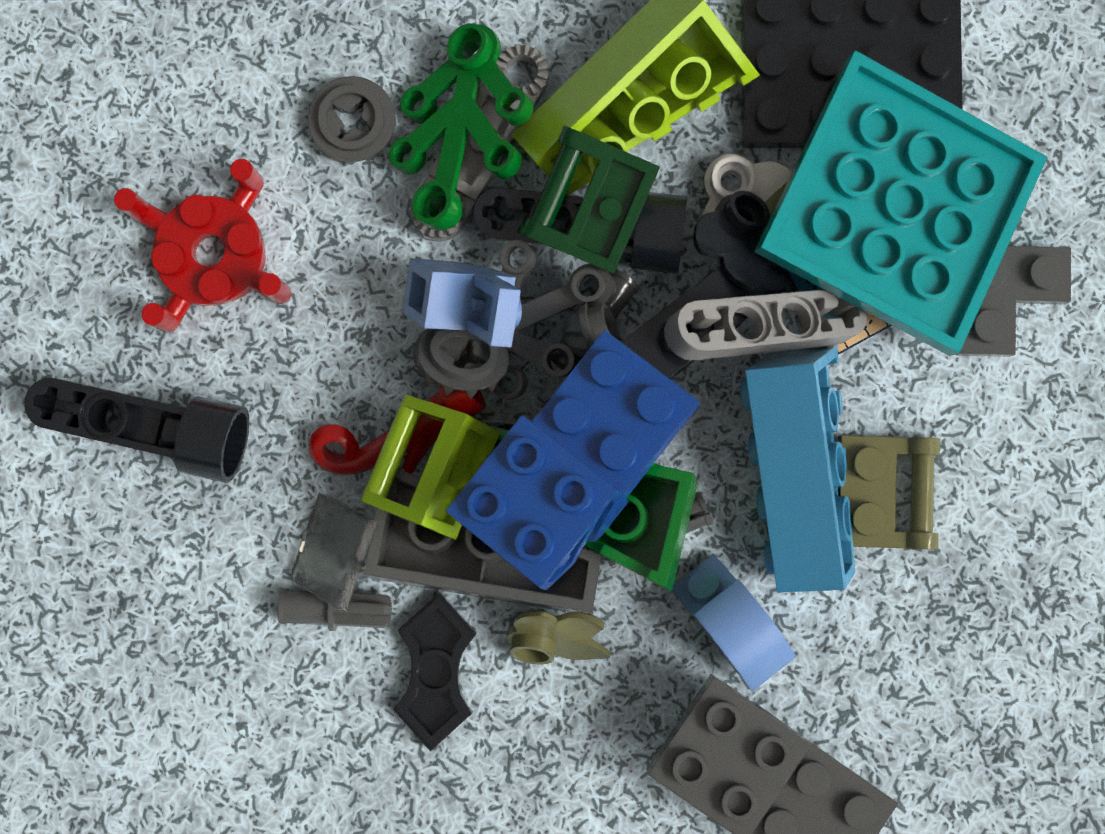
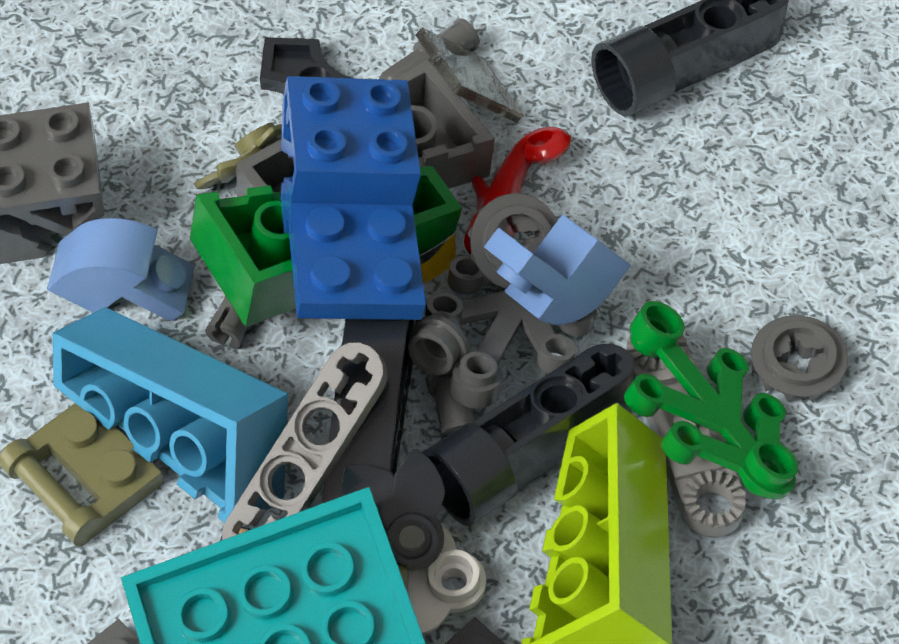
camera: 135 degrees right, 30 degrees down
(182, 232) = (802, 162): red plate -> none
(455, 458) = (447, 166): lime tile -> none
(607, 208) = (527, 421): dark green plate -> none

